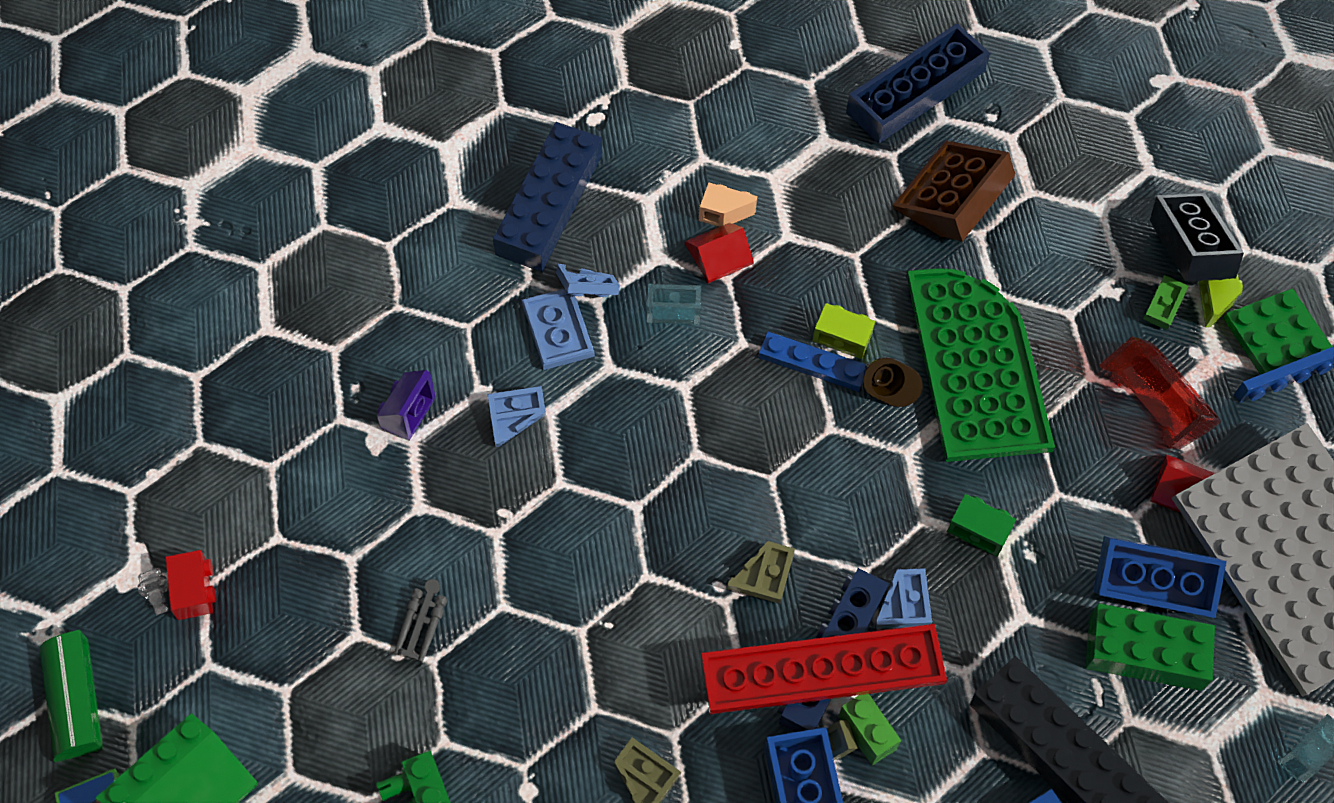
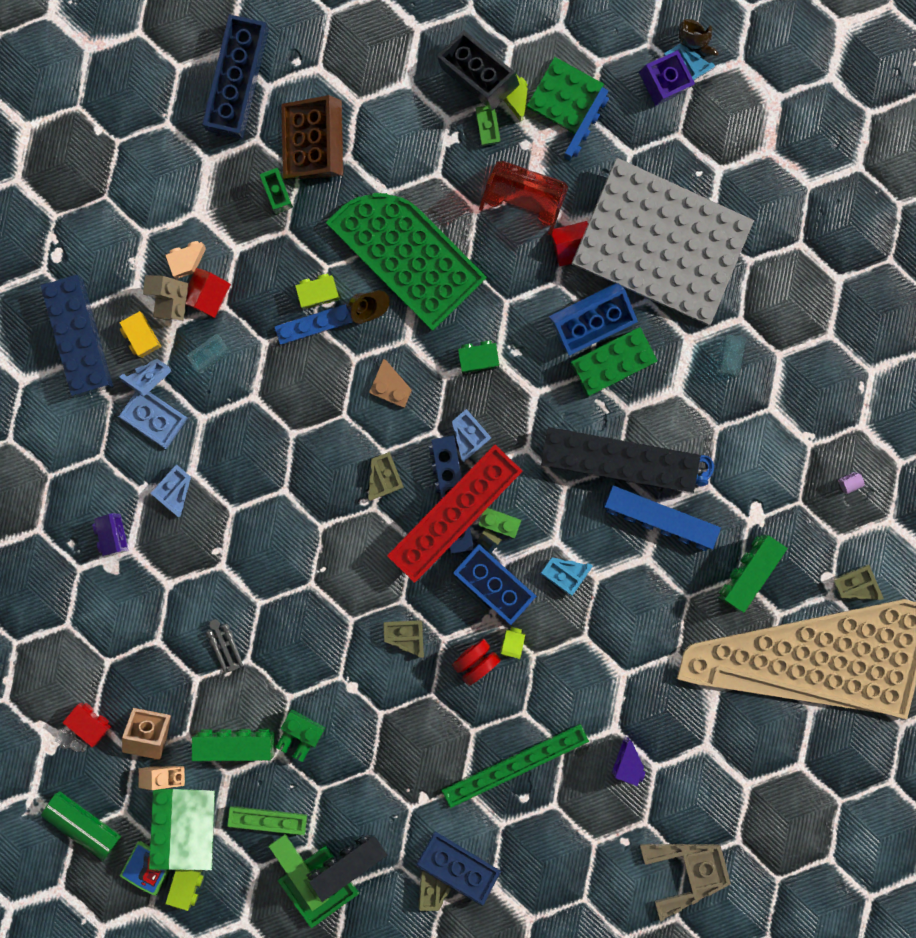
camera: 35 degrees left, 25 degrees up
(214, 712) = (161, 777): none -> light nougat slope
(242, 647) = (146, 733): none -> medium nougat slope
(329, 738) = (233, 745): none -> green brick
(615, 239) = (139, 334): none -> yellow brick
(680, 221) = (168, 295): none -> dark tan brick
(850, 484) = (390, 386): none -> medium nougat wing
(877, 206) = (276, 191): none -> green brick

